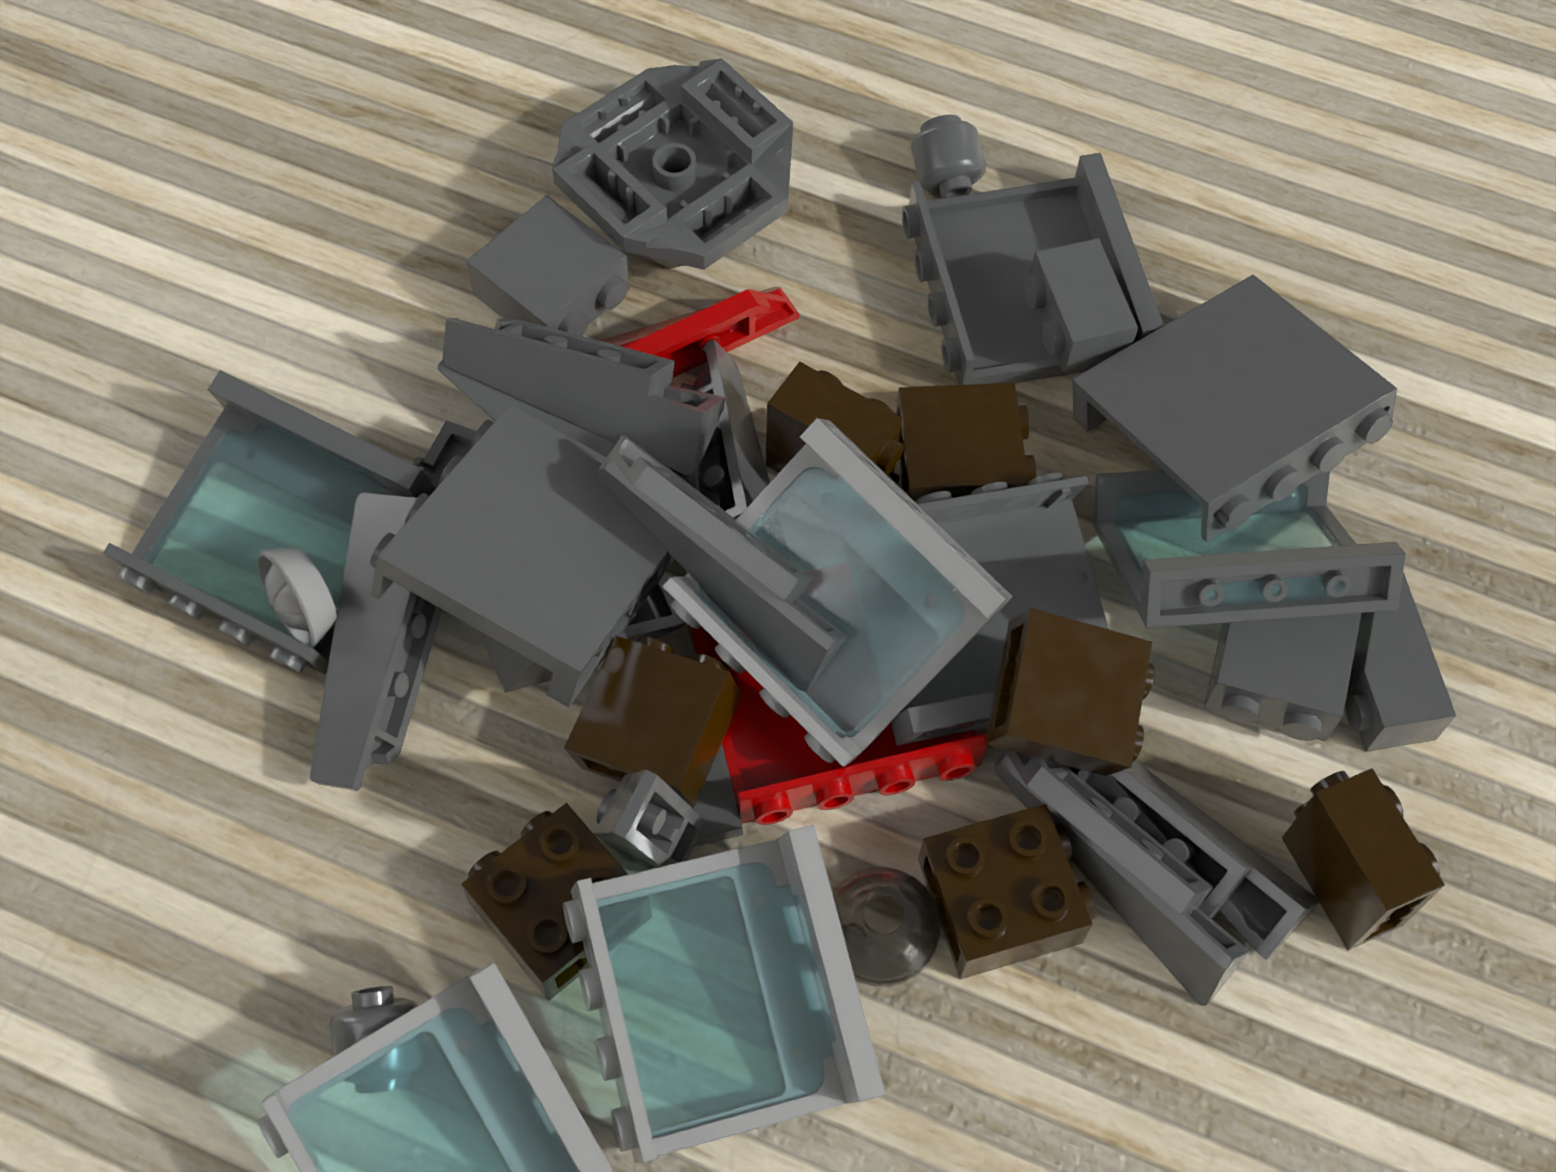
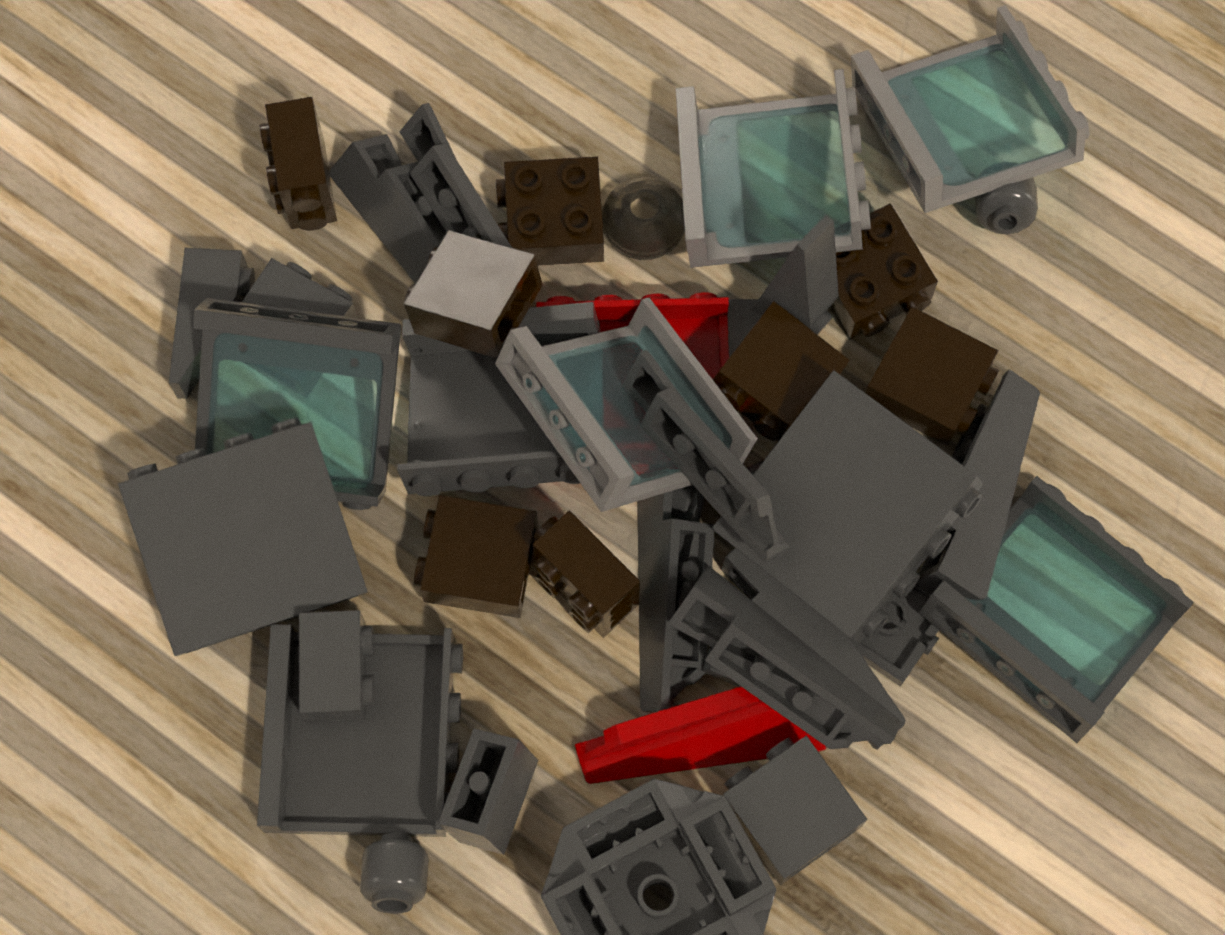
camera: 165 degrees left, 10 degrees up
(297, 593) = (1041, 527): light grey hat -> none
(454, 766) = (933, 376): none -> dark brown brick
(876, 229) = (488, 791): none -> dark grey brick

